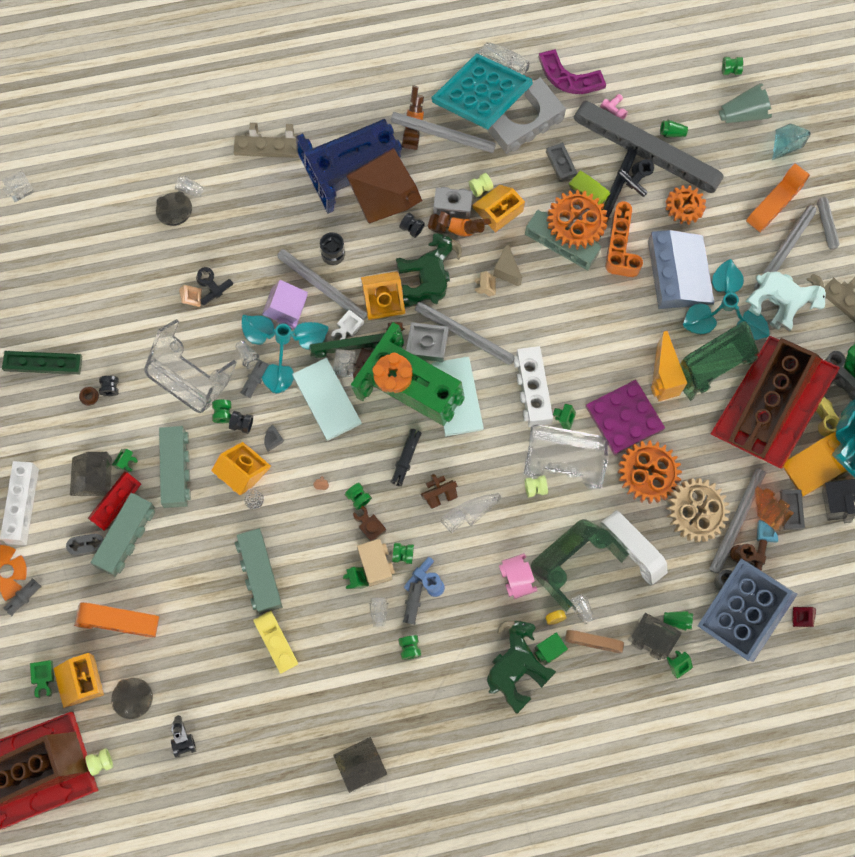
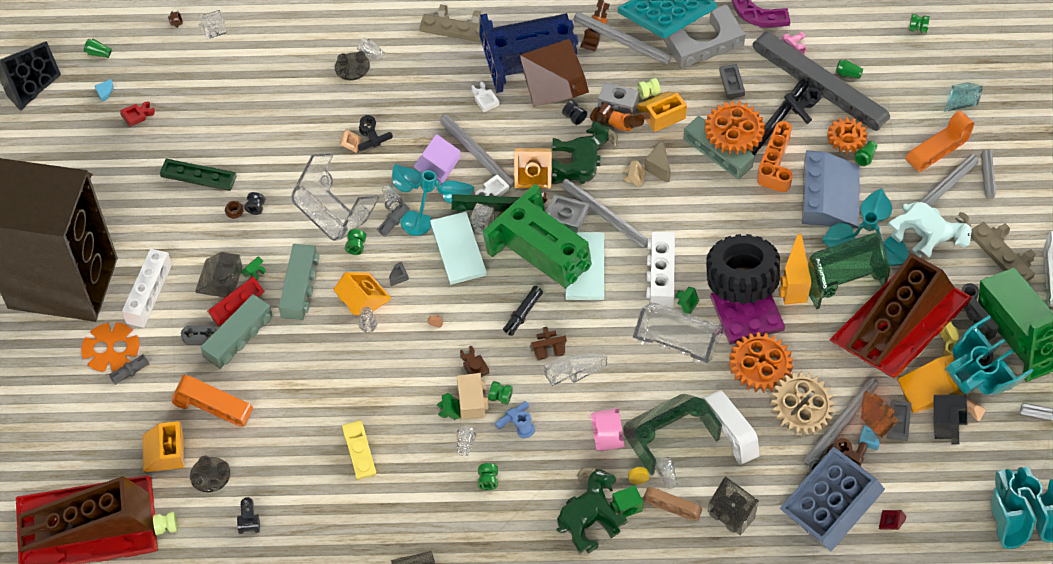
camera: 15 degrees right, 15 degrees down
(41, 674) = (129, 439): green plate -> none
(241, 422) = (371, 254): black wheel -> none
(259, 571) = (357, 384): sand green brick -> none
(318, 224) = (485, 99): none -> white plate
(332, 248) = (493, 120): black wheel -> none
(358, 496) = (468, 335): green wheel -> none
(392, 362) = (524, 216): orange plate -> none
(412, 603) = (499, 438): dark grey pin -> none
(536, 486) = (649, 357): yellowish green wheel -> none
(586, 183) = (758, 104): lime slope -> none
(616, 397) = (743, 284): none -> black tyre
(679, 619) = (766, 499): green cone -> none
(681, 664) = (755, 540): green tile -> none
(707, 222) = (865, 155): none -> green cone
(747, 106) = (925, 59): sand green cone -> none

